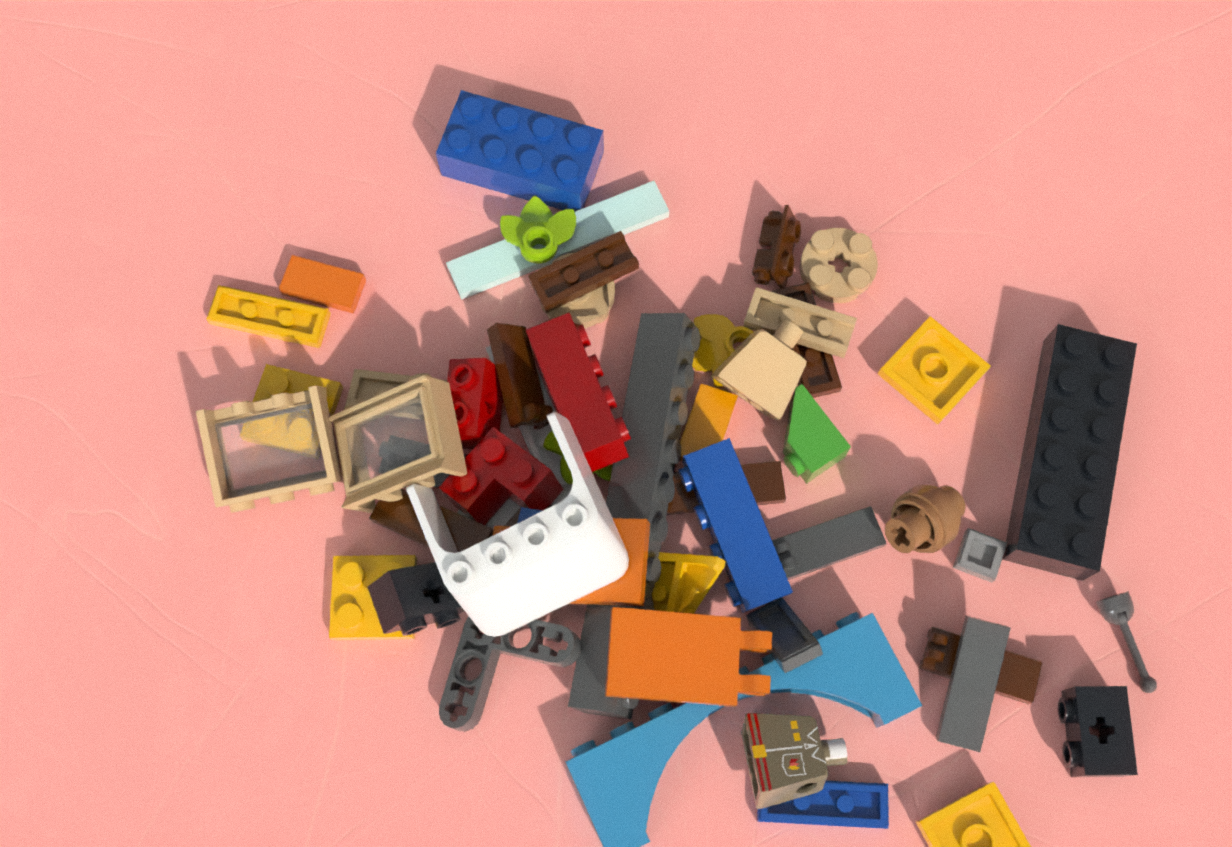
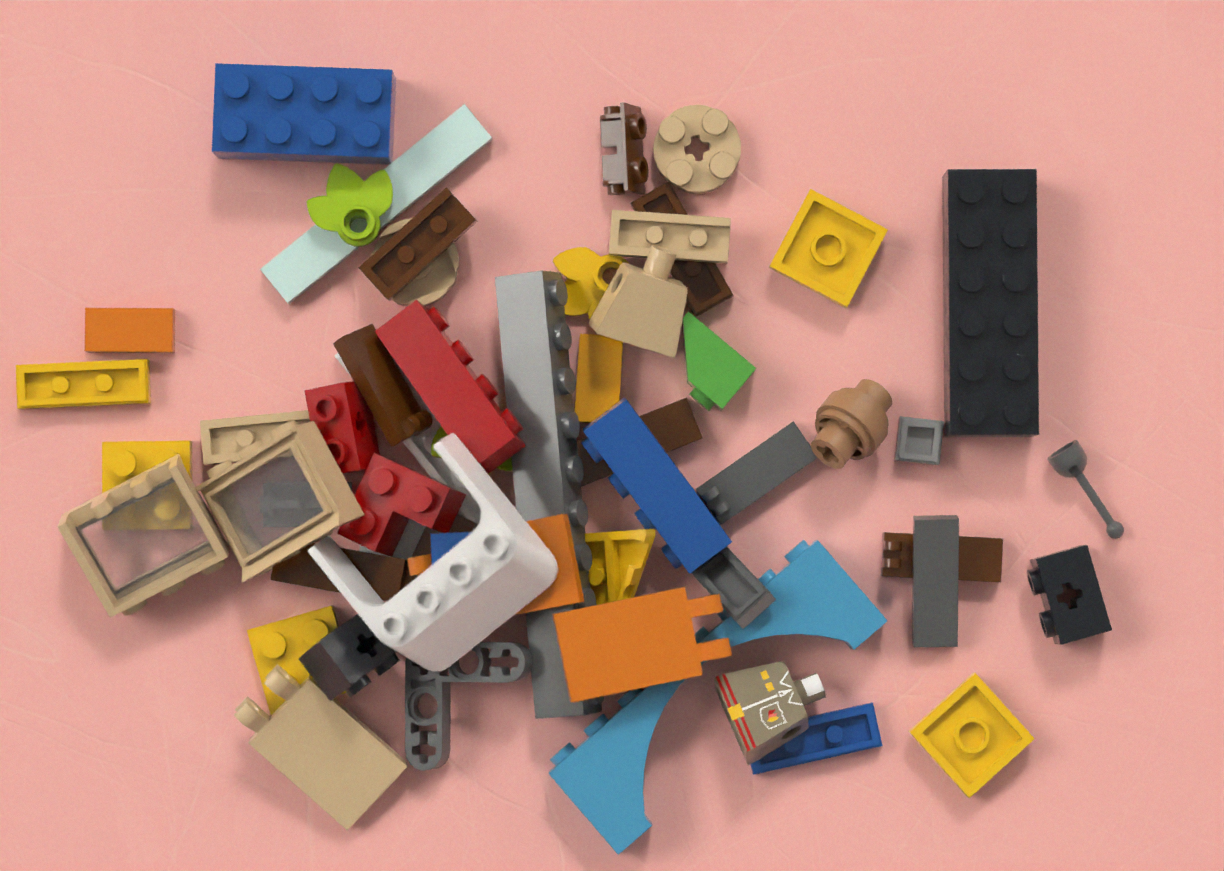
camera: 15 degrees left, 15 degrees up
(364, 680) = (321, 747): none -> tan tile

